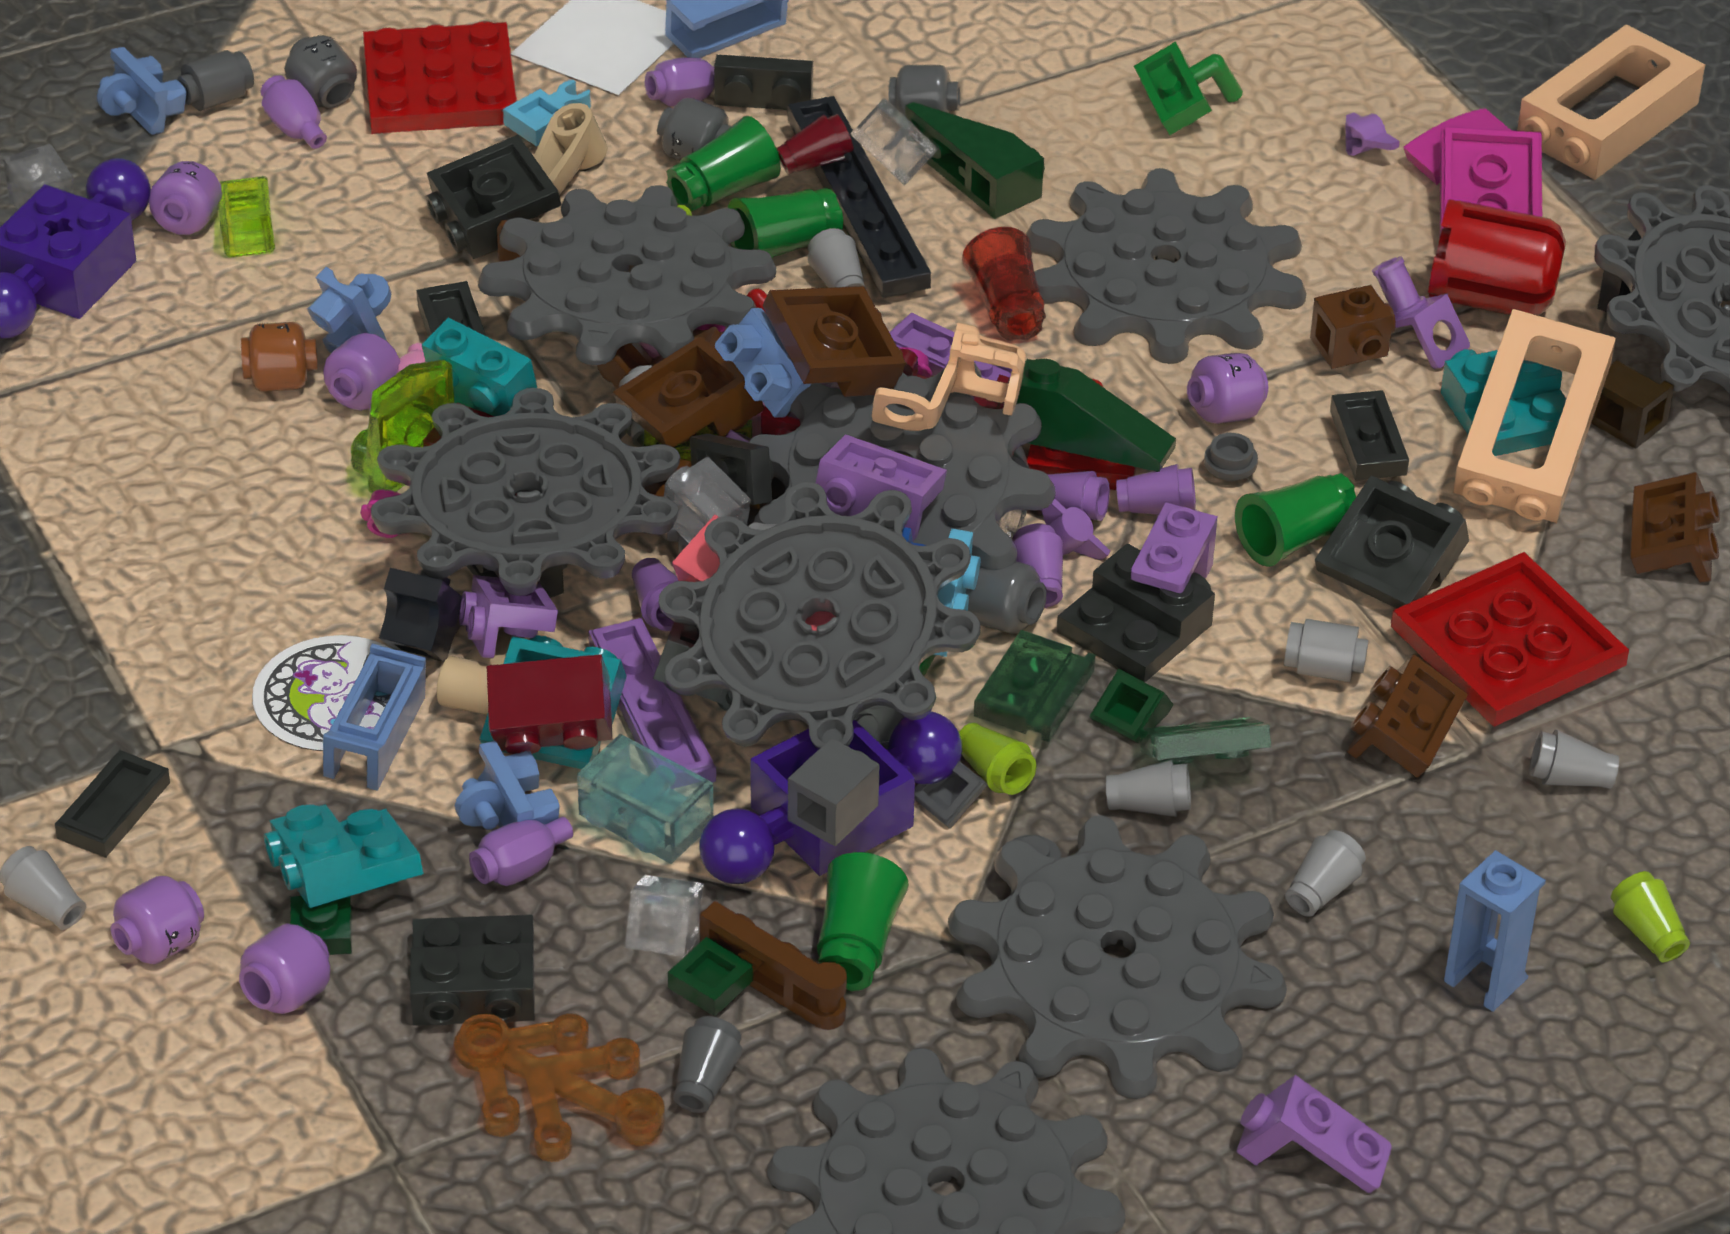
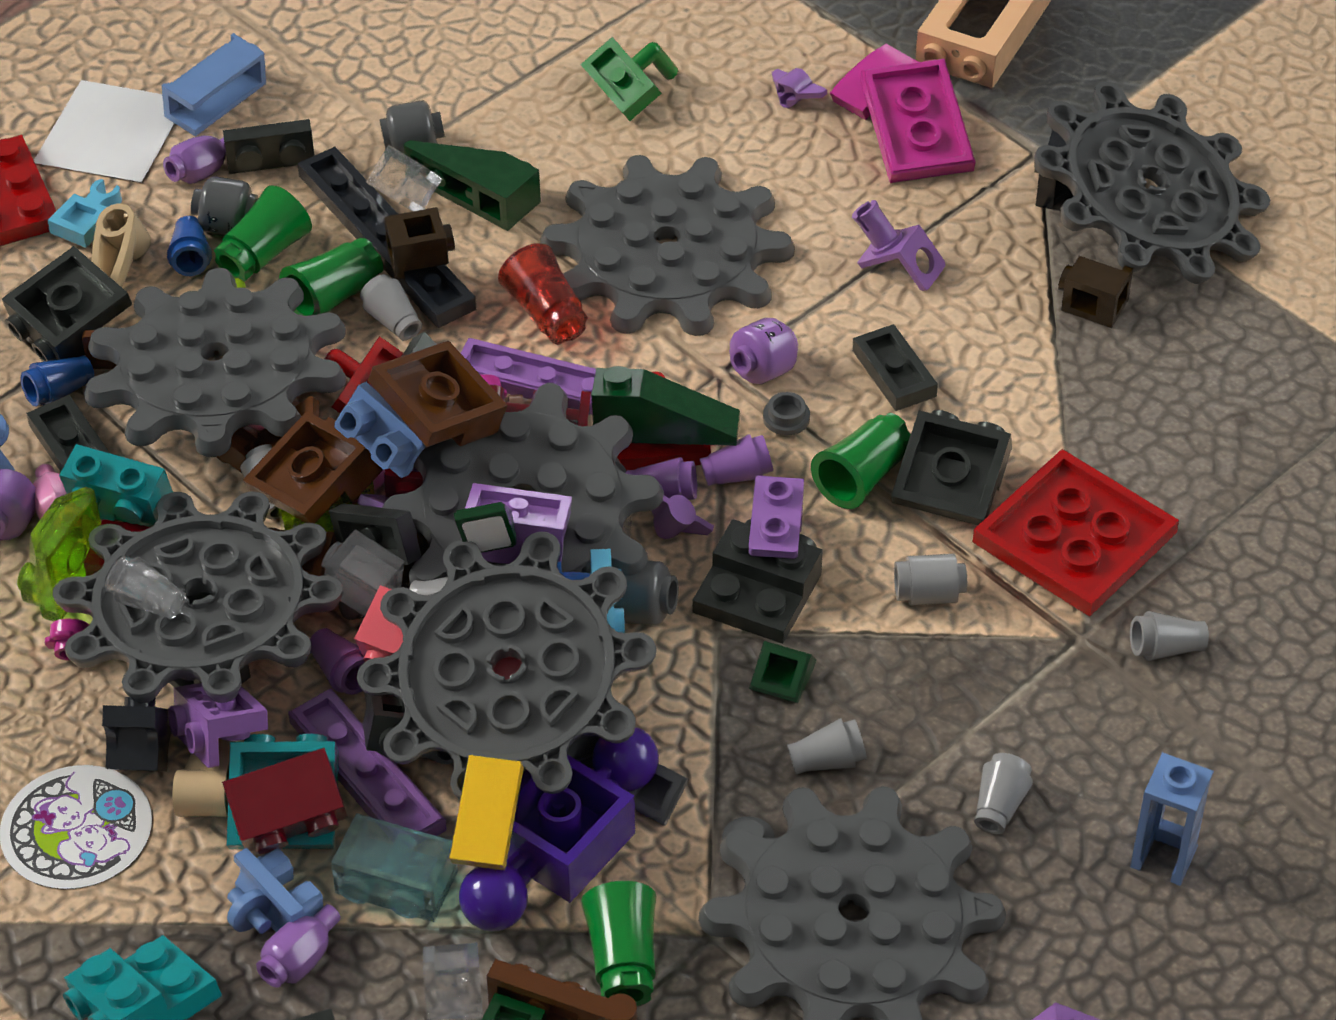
camera: 15 degrees left, 5 degrees up
(390, 673) = (125, 798): medium blue window -> none
(456, 262) = (55, 379): none -> blue cone
(467, 463) = (144, 588): none -> clear cone
(642, 165) = (189, 249): none -> blue cone
(749, 754) = (486, 812): none -> yellow tile
(816, 145) = (339, 199): dark red cone -> none
(833, 791) = (574, 832): dark grey brick -> none
(841, 472) = (487, 526): none -> slope
(884, 201) = (417, 240): none -> dark brown brick
(957, 377) = (556, 380): light nougat piece -> none
(998, 759) = (688, 751): lime cone -> none
(1034, 685) = (695, 672): clear green plate -> none
(1043, 550) = (663, 546): medium lavender cone -> none
(1222, 738) = (859, 690): clear green plate -> none
(1352, 326) = (848, 270): reddish brown brick -> none
(1408, 715) = (1018, 625): reddish brown bracket -> none
(1497, 259) = (949, 183): red cylinder -> none
(1529, 491) = (999, 382): light nougat piece -> none
(1532, 407) = (997, 307): teal plate -> none
(1650, 915) = (1281, 764): lime cone -> none
(1674, 526) = (1172, 396): reddish brown bracket -> none

